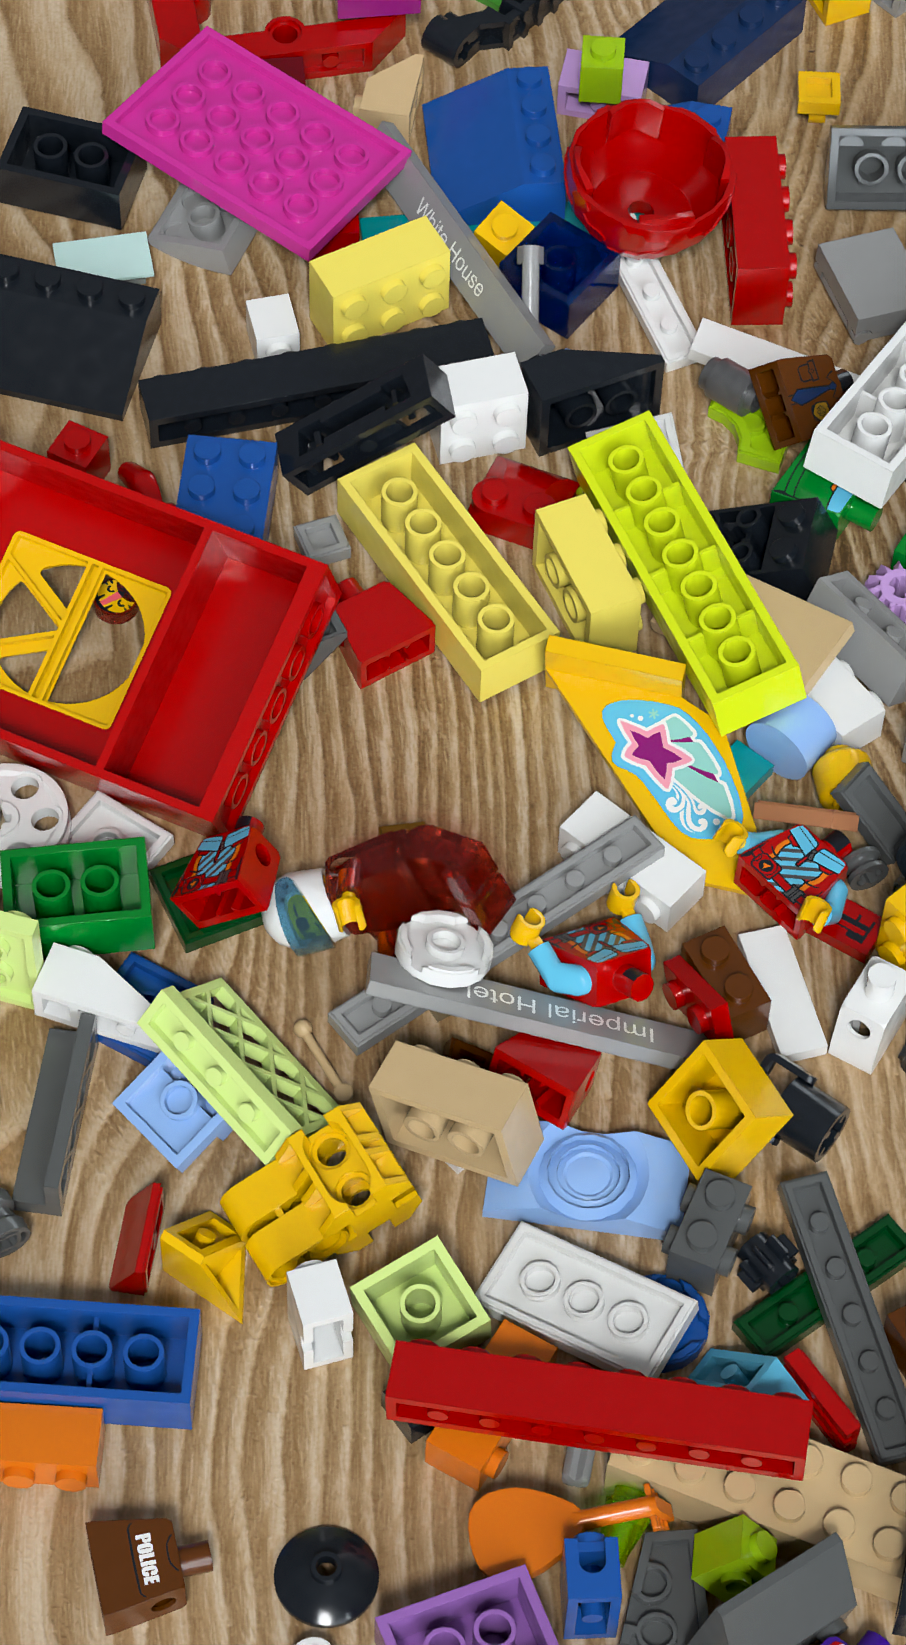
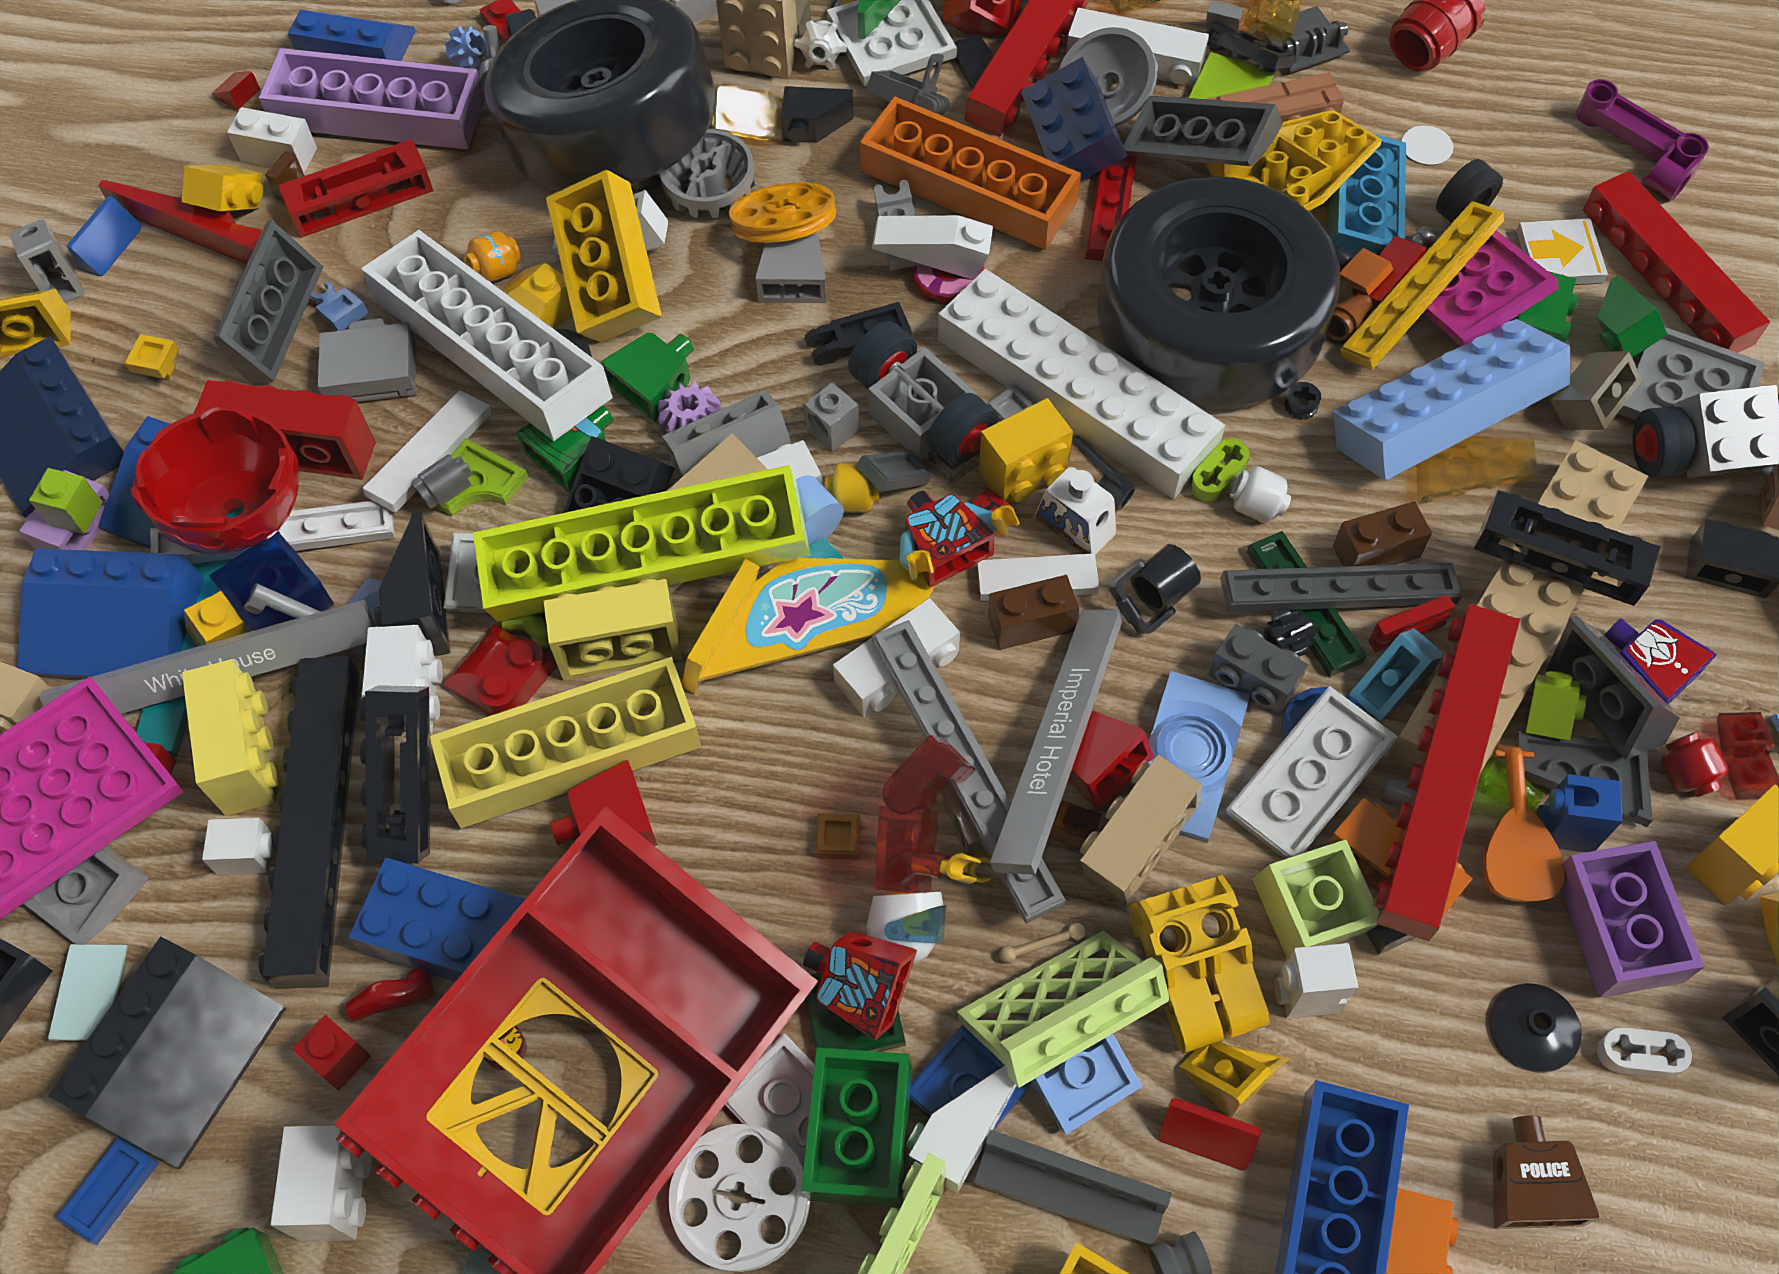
camera: 75 degrees left, 5 degrees up
(322, 540) = (490, 848): light grey tile -> none
(443, 949) = (993, 804): white tile -> none
(597, 960) = (1002, 691): torso -> none
(696, 999) = (1050, 630): red plate -> none
(720, 1108) = (1161, 632): yellow brick -> none
(797, 395) = (479, 432): reddish brown torso -> none
(806, 815) = (890, 517): nougat tile -> none
(865, 868) = (936, 488): dark grey bush -> none

